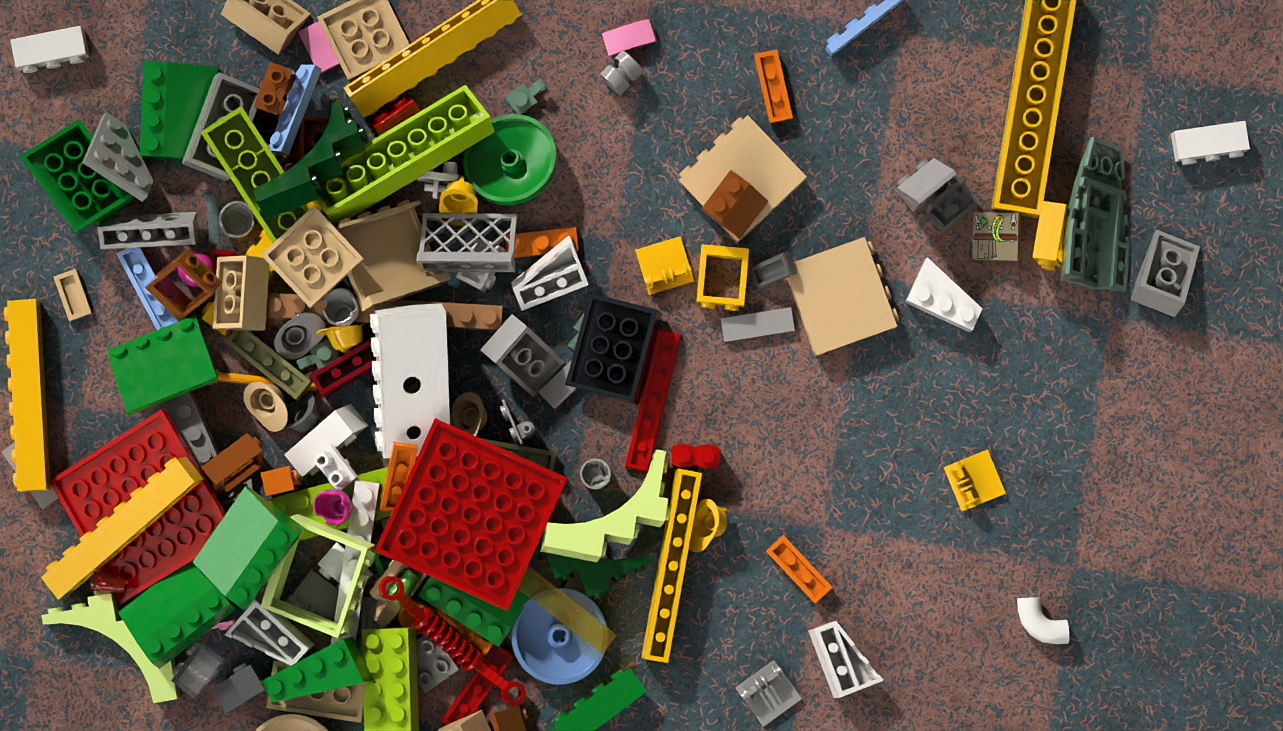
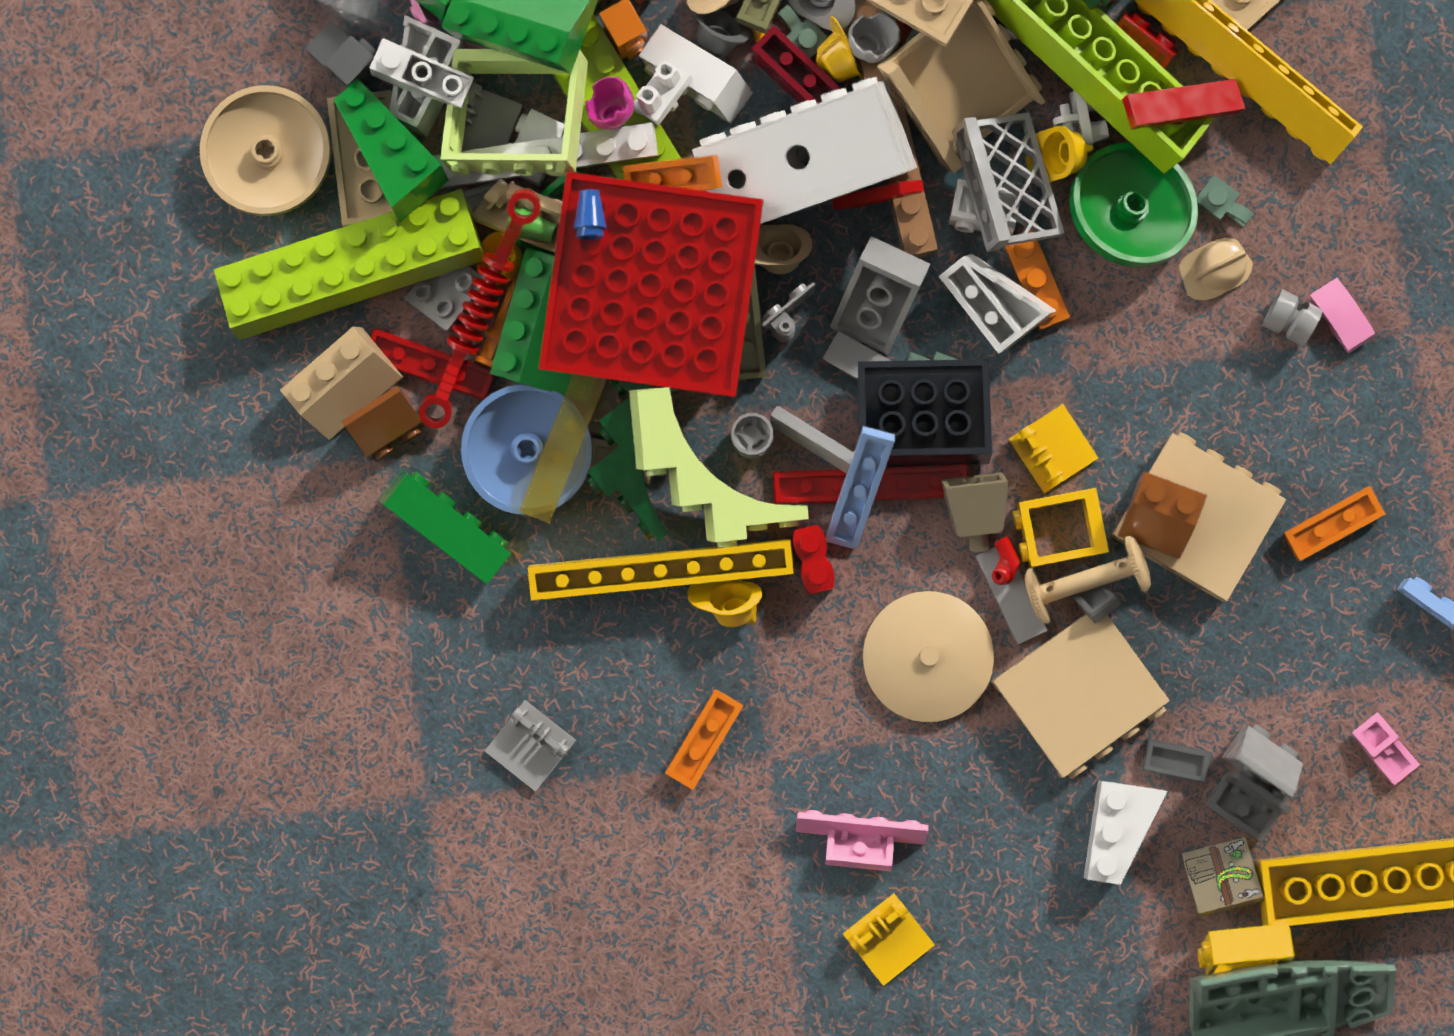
camera: 75 degrees right, 0 degrees up
(273, 635) = (420, 74): none -> white slope
(372, 605) = (497, 194): none -> tan plate
(411, 543) = (590, 217): none -> blue cone
(451, 104) = (1183, 104): none -> tile
(453, 333) = (878, 194): none -> red tile
(570, 115) = (1215, 269): none -> tan piece
(611, 431) = (811, 438): none -> light grey tile
(655, 409) = (860, 487): none -> light blue plate
(690, 331) = (976, 506): none -> dark tan torso
(737, 321) = (1008, 562): none -> red arm
(764, 264) = (1079, 582): none -> tan hose
(785, 395) = (928, 656): none -> tan dish
(841, 660) = (599, 829): white wedge -> none
(901, 479) = (860, 841): none -> bright pink bracket
(907, 244) = (1176, 761): none -> dark grey tile
(940, 97) = (1385, 749): none -> bright pink slope

